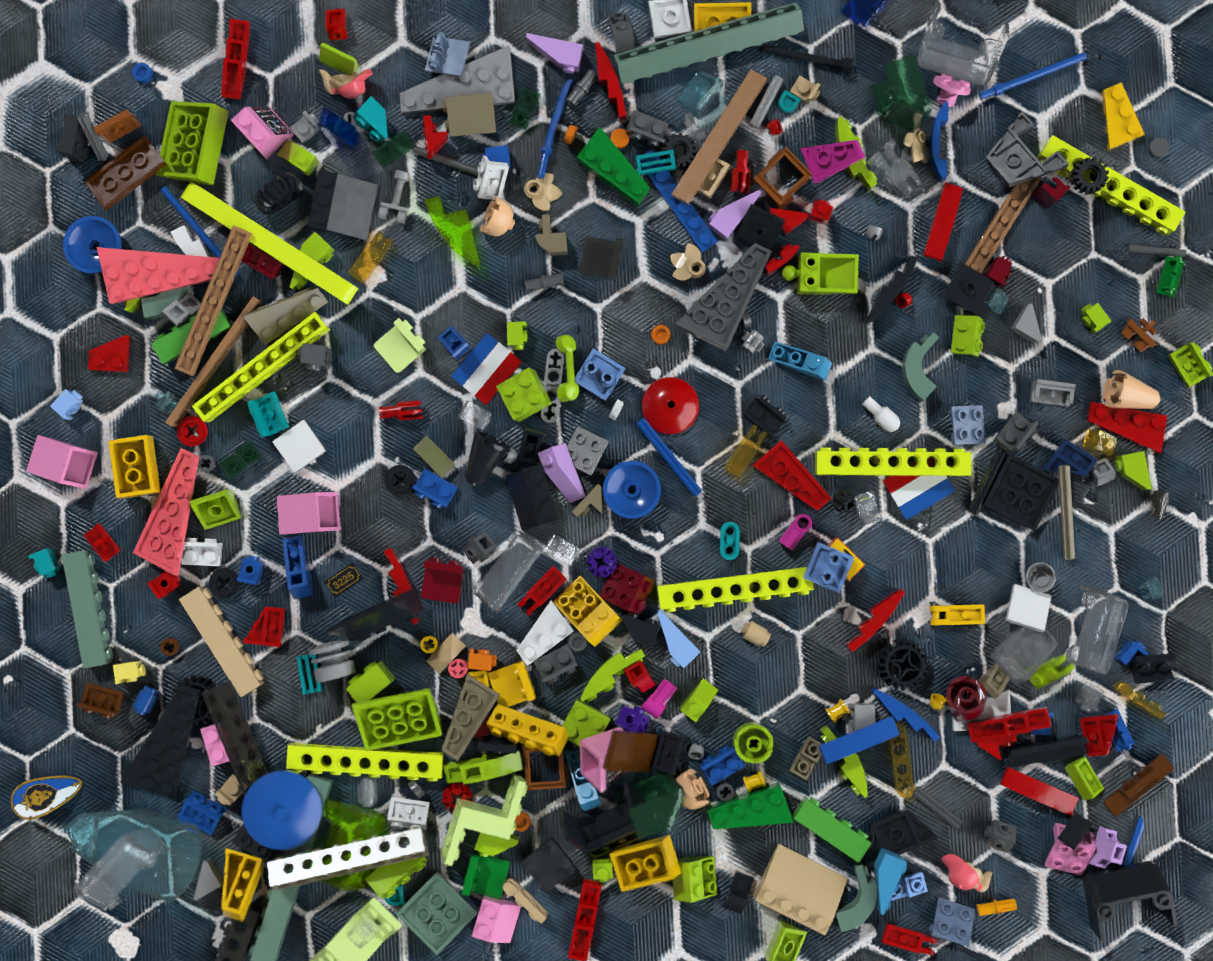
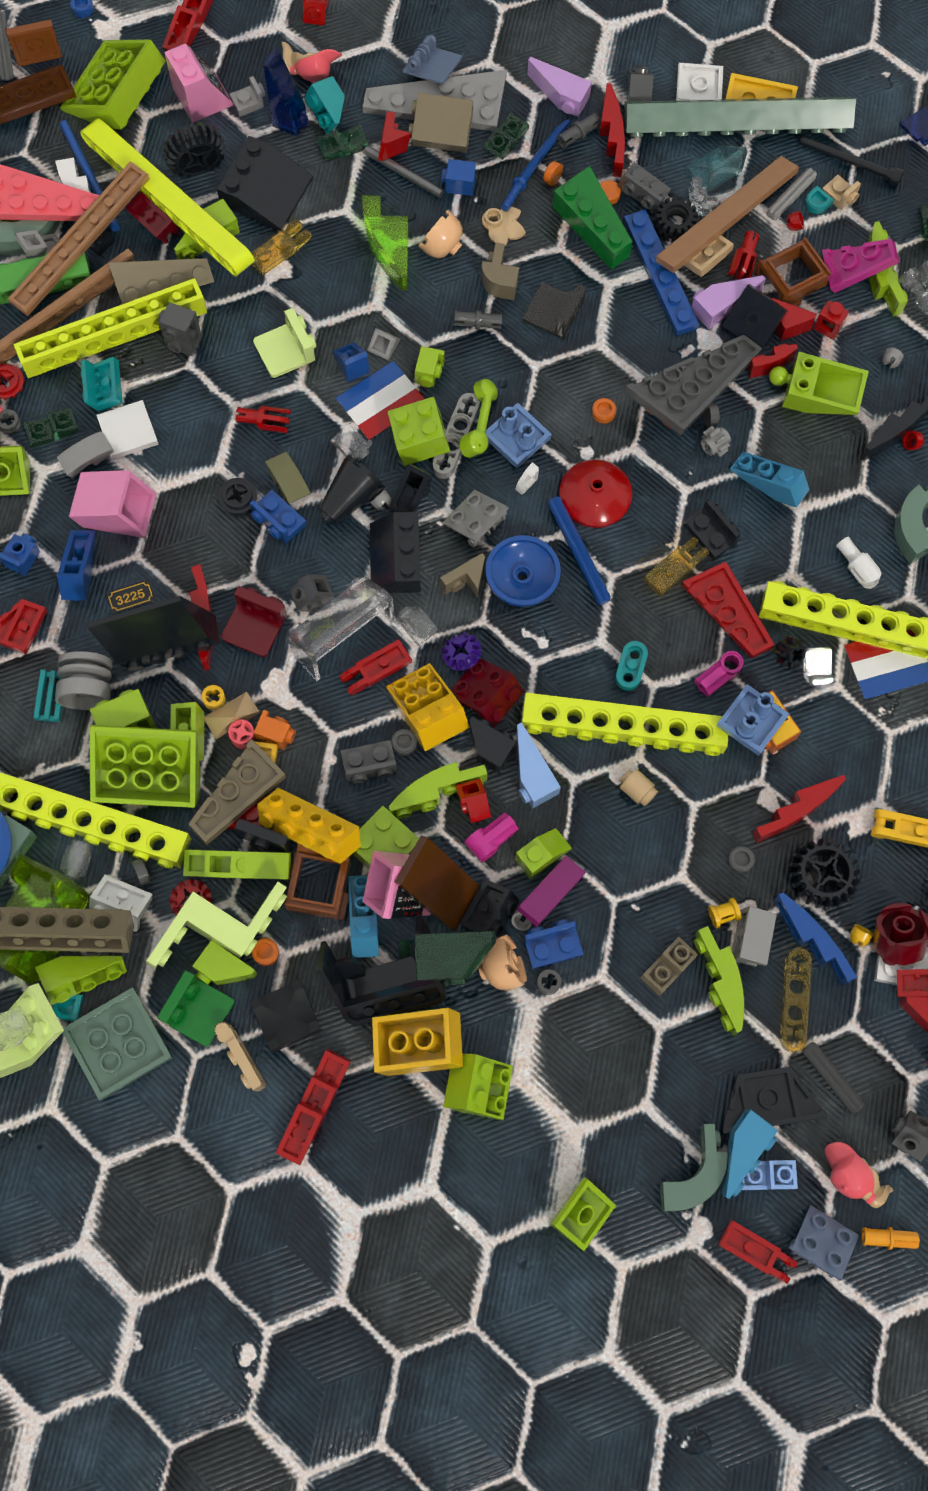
camera: 15 degrees right, 15 degrees down
(273, 476) = (88, 450): none -> light grey slope
(298, 157) = (231, 125): lime slope -> none
(337, 59) = (305, 37): lime slope -> none
(401, 178) = (342, 173): light grey bar -> none
(418, 676) = (189, 717): none -> lime brick
(475, 320) = (383, 344): none -> light grey slope
(490, 179) = (447, 191): white bracket -> none
(496, 920) = (193, 1073): bright pink slope -> none
(512, 684) = (306, 771): yellow bracket -> none
(544, 634) = (364, 722): white wing -> none
(561, 470) = (440, 528): lavender slope -> none
(602, 869) = (356, 1042): lime brick -> none
(633, 719) = (455, 848): dark purple brick -> none
(655, 170) = (646, 224): teal tile -> none
(685, 262) = (655, 339): tan plate -> none
(711, 728) = (551, 891): none -> magenta tile
(738, 892) = (533, 1124): black slope -> none
(752, 753) = (606, 908): lime brick -> none
(754, 781) = (591, 977): yellow bush -> none
(756, 808) = (583, 1011): green wedge -> none
(800, 889) = (621, 1140): tan slope -> none
(832, 829) = (682, 1065): bright green brick -> none
(841, 667) = (741, 859): none -> dark grey tile
(858, 740) = (745, 949): blue slope -> none

